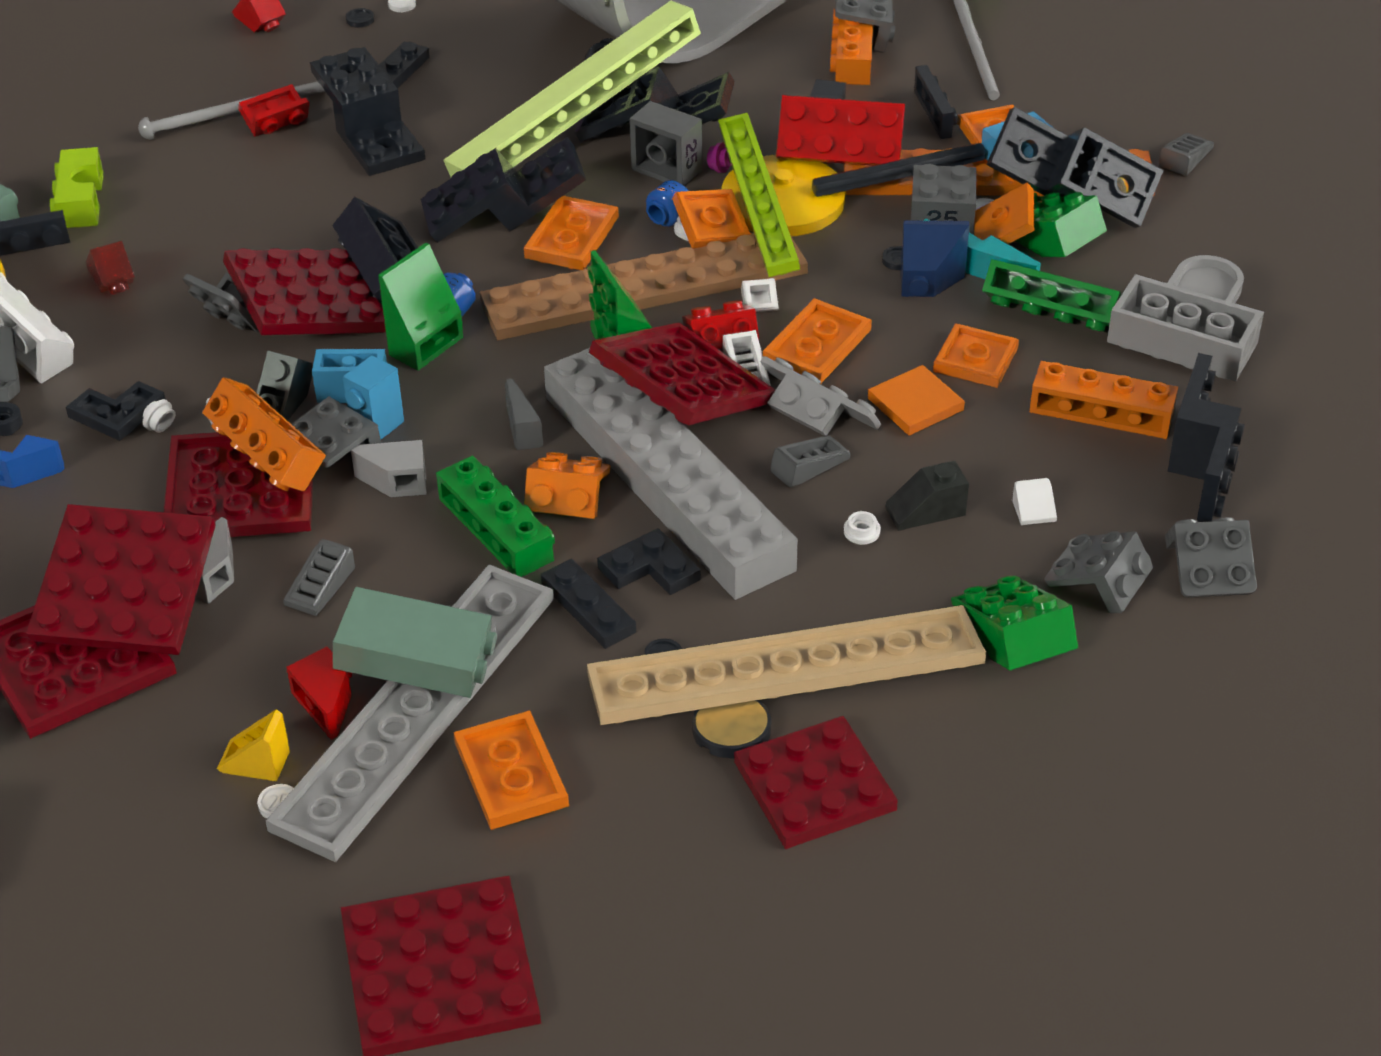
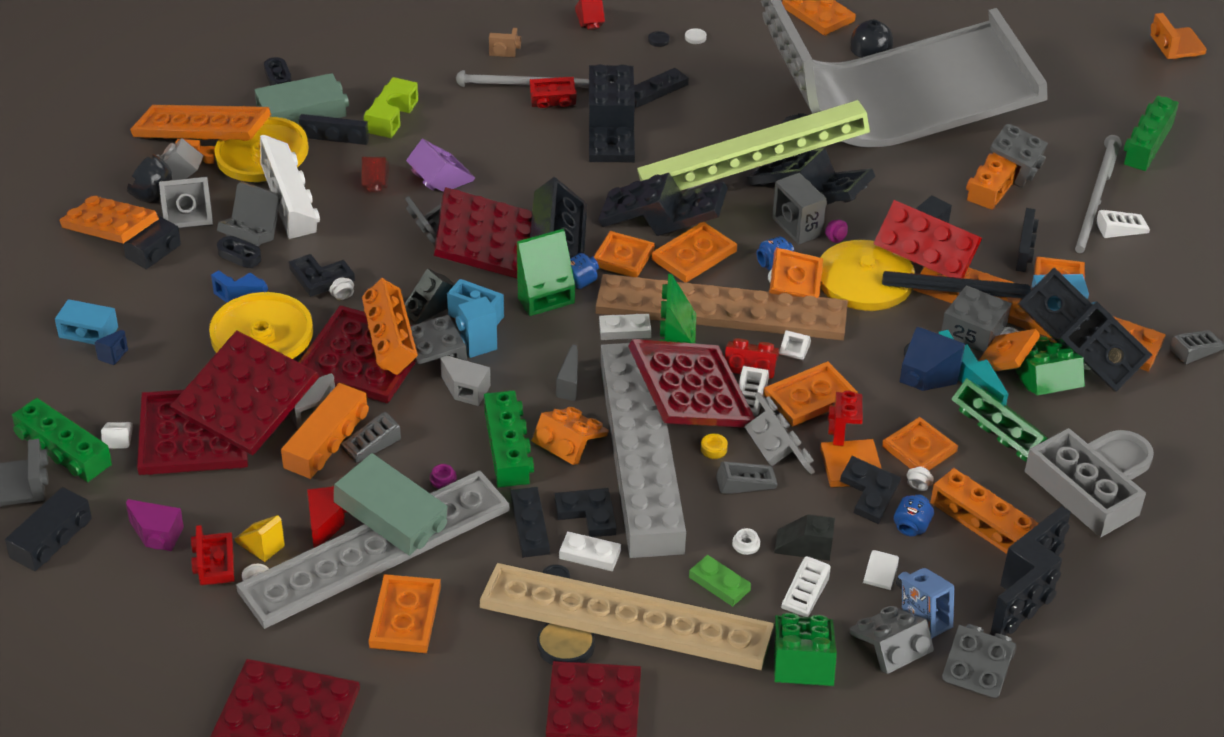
camera: 25 degrees right, 0 degrees up
(82, 477) = (266, 317): none -> yellow dish
(97, 789) = (155, 523): none -> magenta slope
(175, 75) = (504, 44): none -> medium nougat bracket
(187, 237) = (438, 167): none -> medium lavender slope
(209, 800) = (214, 557): none -> red bracket
(257, 590) = (324, 430): none -> orange brick
(443, 589) = (442, 476): none -> magenta plate
(489, 261) = (624, 254): none -> orange plate
(545, 342) = (625, 326): none -> white plate
(685, 609) = (590, 551): none -> white plate
(746, 437) = (714, 446): none -> yellow tile
(759, 195) = (837, 269): lime plate -> none
(861, 583) = (720, 580): none -> bright green plate
(876, 347) = (847, 409): none -> red bracket
(965, 411) = (875, 483): none -> black plate
(966, 531) = (812, 571): none -> white slope
(1005, 388) = (919, 478): none -> white plate
(1017, 56) = (1120, 224): none -> white slope
(1028, 429) = (913, 515): none -> blue head
(1113, 505) = (928, 597): none -> medium blue torso

